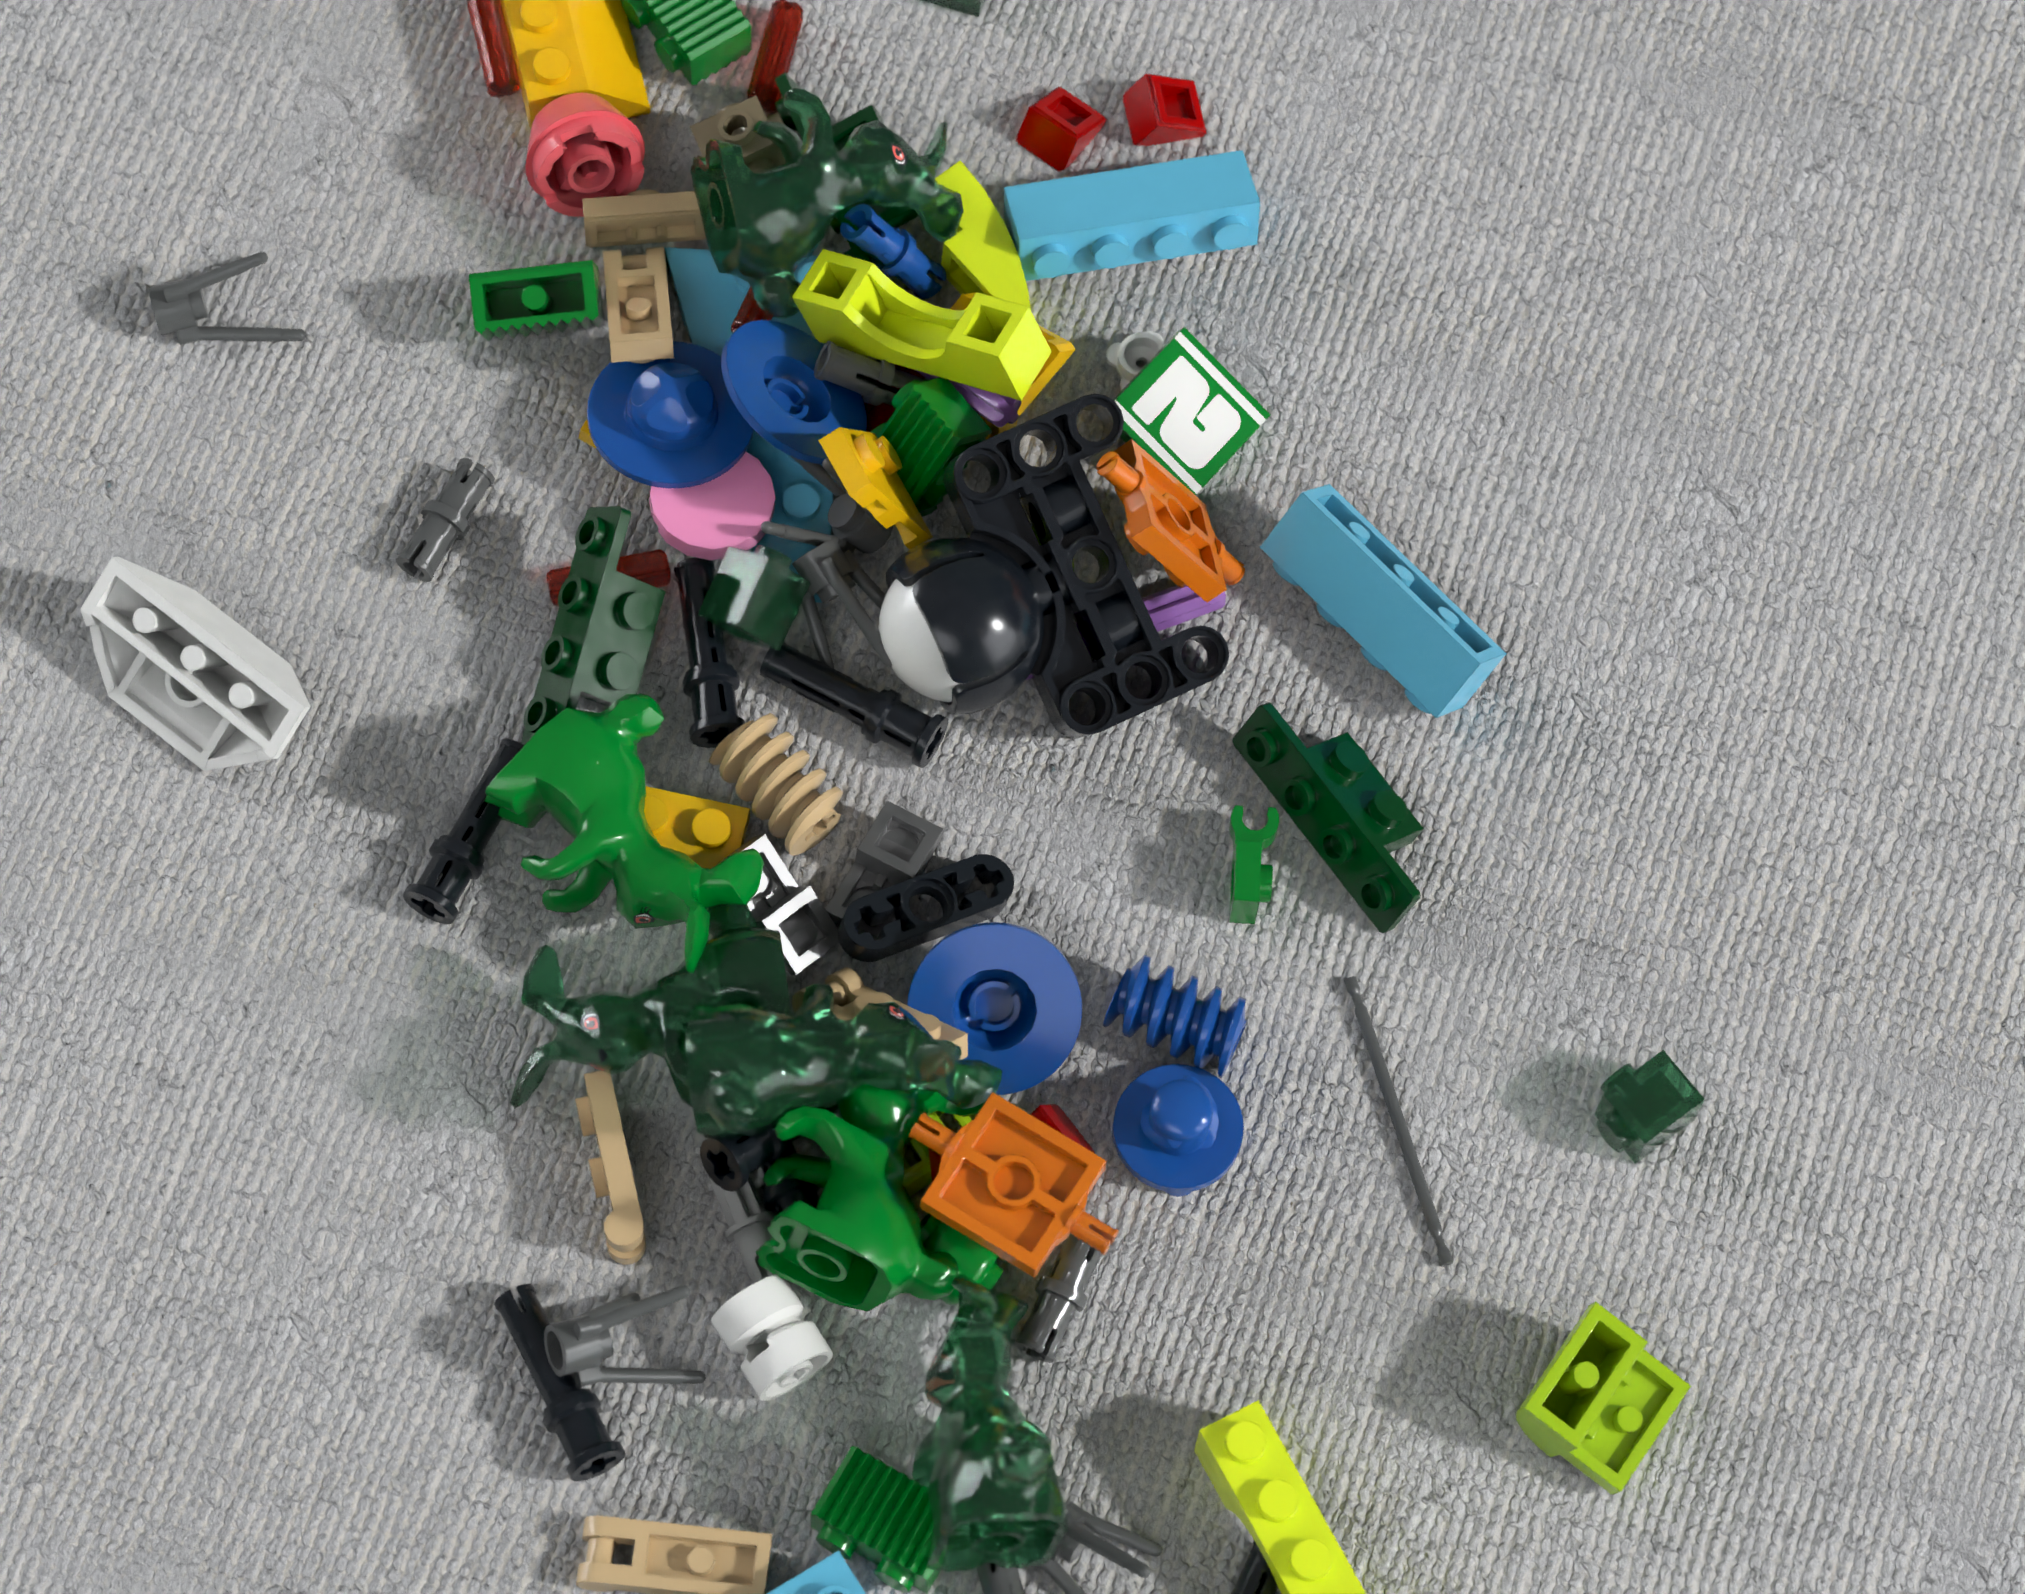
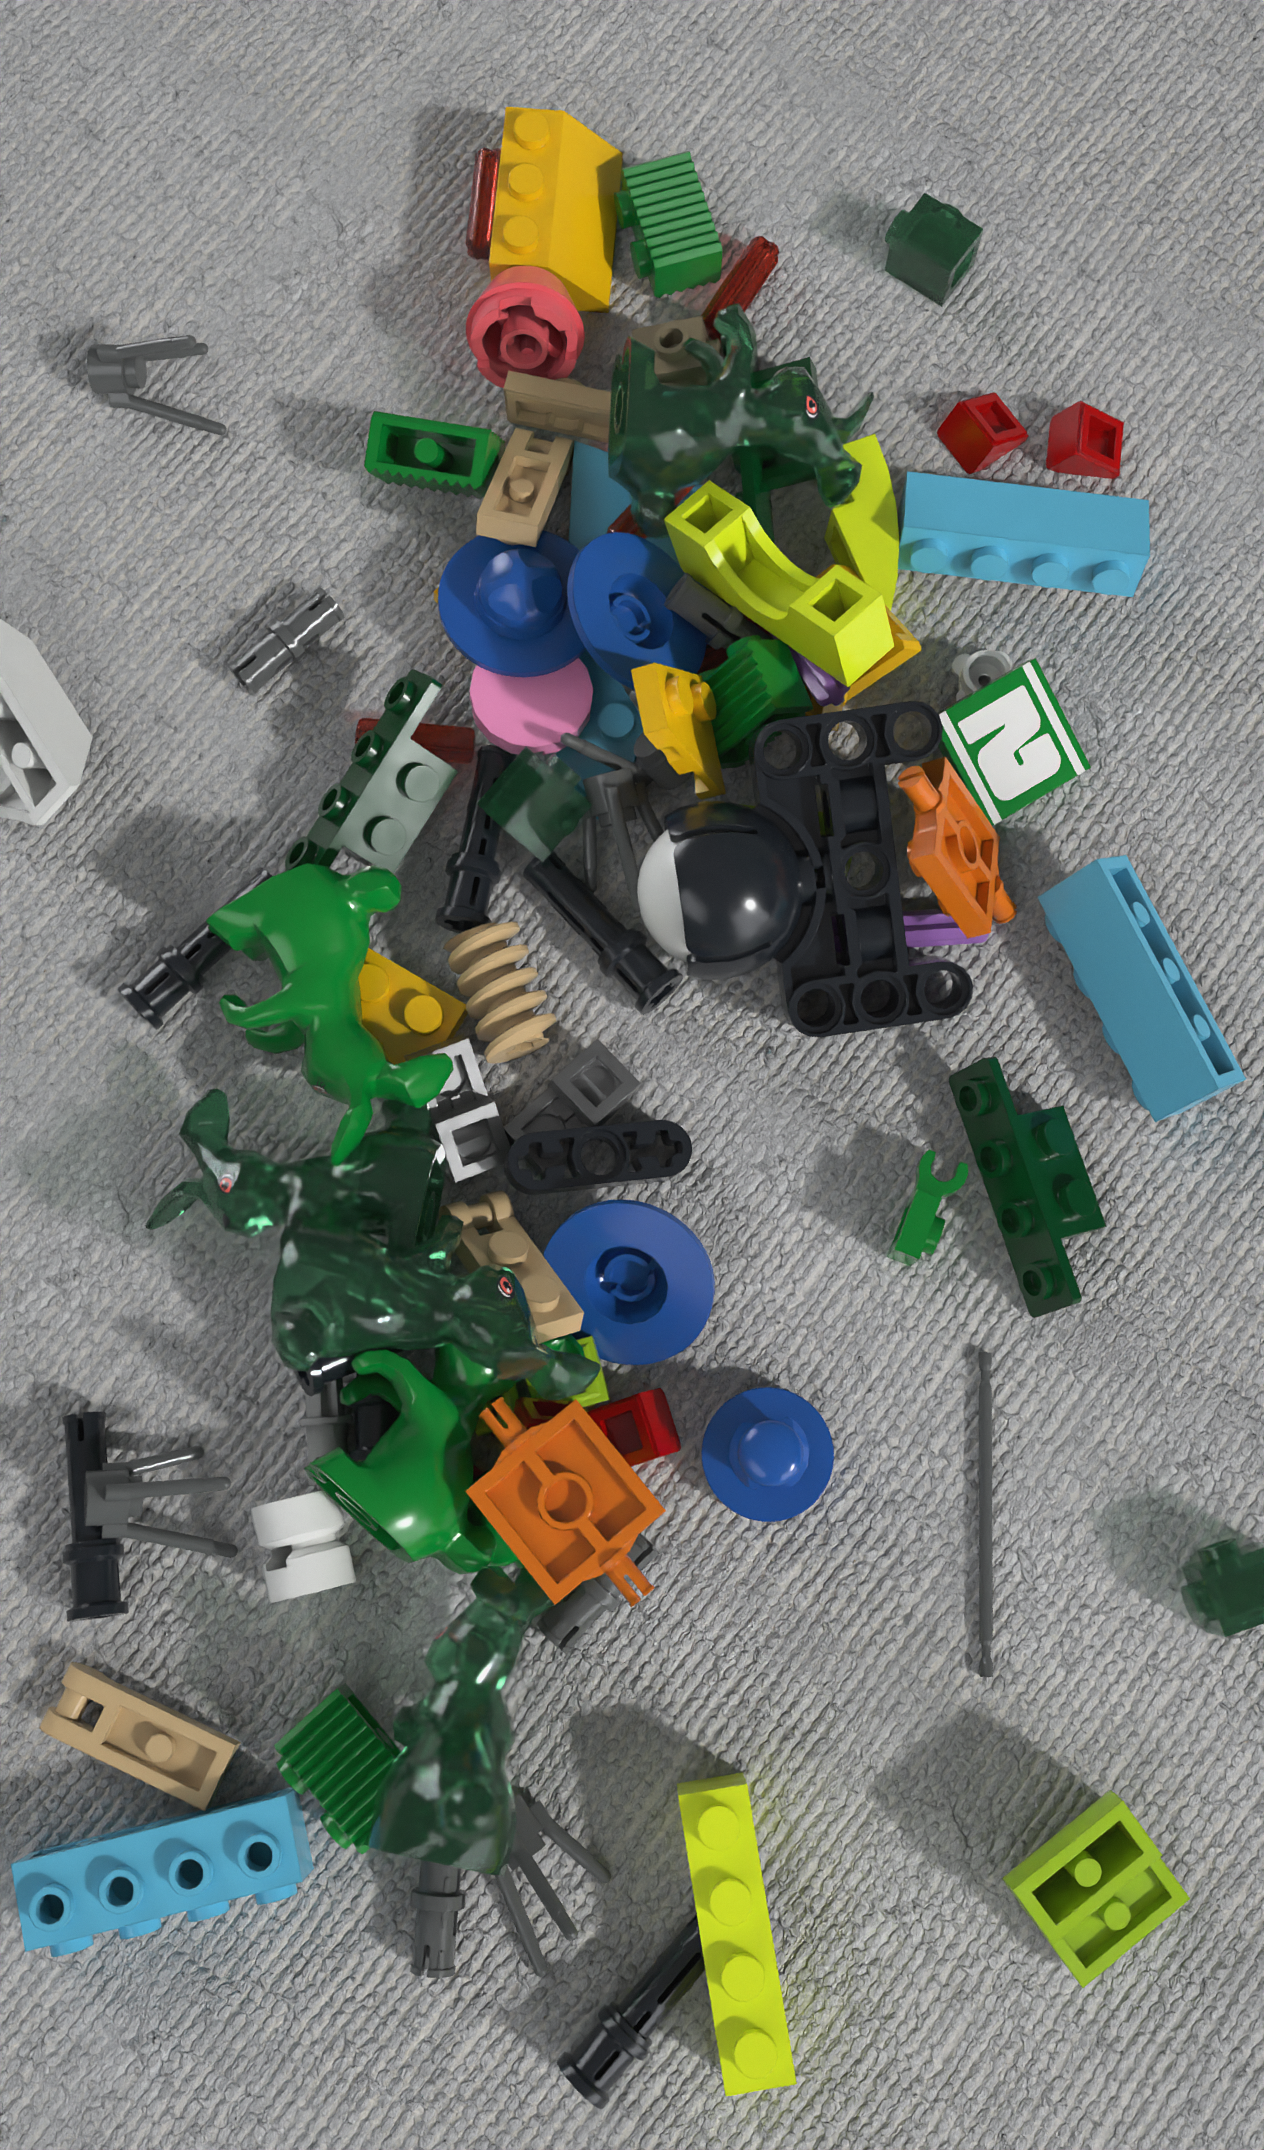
camera: 25 degrees right, 10 degrees up
(612, 1170) = (216, 1323): tan plate -> none
(893, 251) = (780, 503): blue pin -> none
(1178, 1014) = (805, 1344): blue piece -> none

